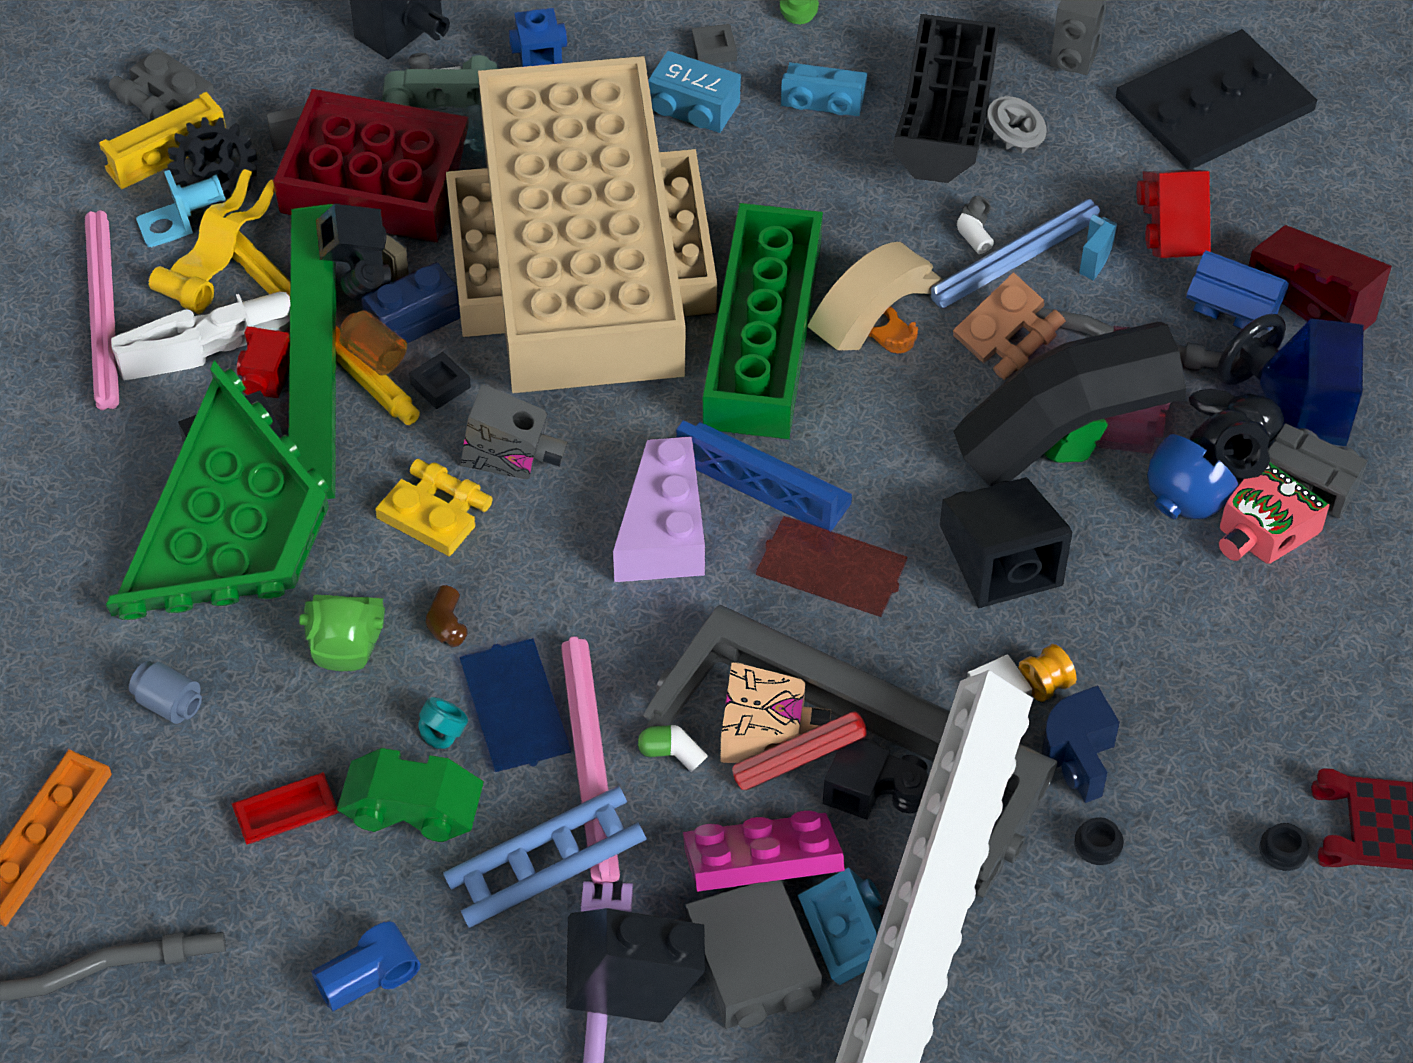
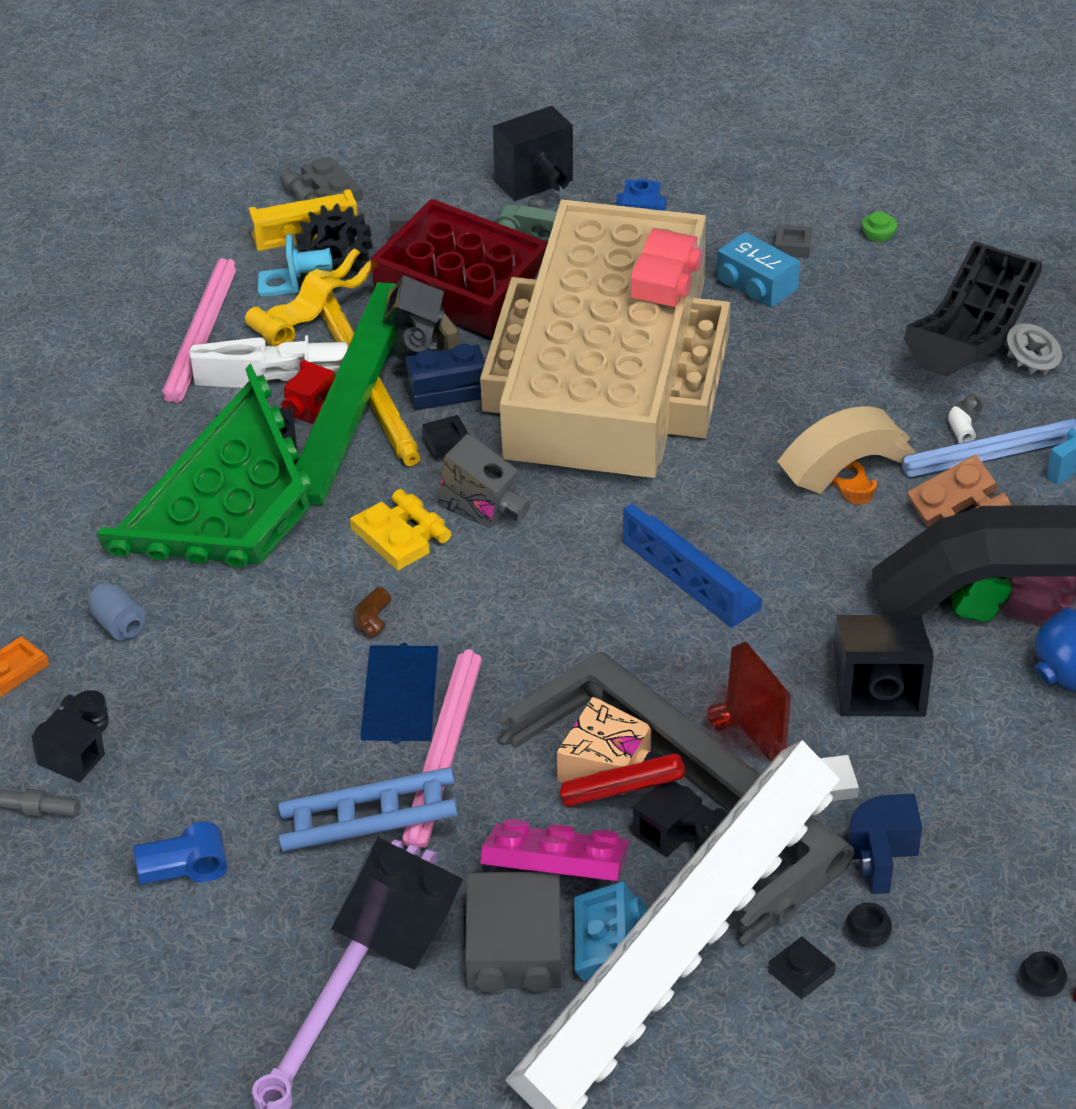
camera: 20 degrees right, 10 degrees down
(184, 861) = (72, 736): none -> black brick
(285, 808) = (173, 723): red tile -> none
(342, 630) = (278, 598): bright green helmet -> none
(372, 342) = (399, 392): clear orange brick -> none
(430, 796) = (289, 735): green brick -> none
(443, 718) = (333, 685): teal tile -> none
(630, 135) = (665, 267): none -> coral brick
(663, 517) = (585, 576): lavender wedge -> none
(670, 741) = (517, 749): arm -> none
(763, 321) = (738, 448): green brick -> none
(823, 89) = (873, 291): dark azure bracket -> none
(832, 566) = (706, 644): clear red piece -> none
(899, 624) = (754, 702): none -> clear red tile
(1048, 672) = (877, 776): light orange wheel -> none
(1050, 907) = (801, 967): none -> black plate

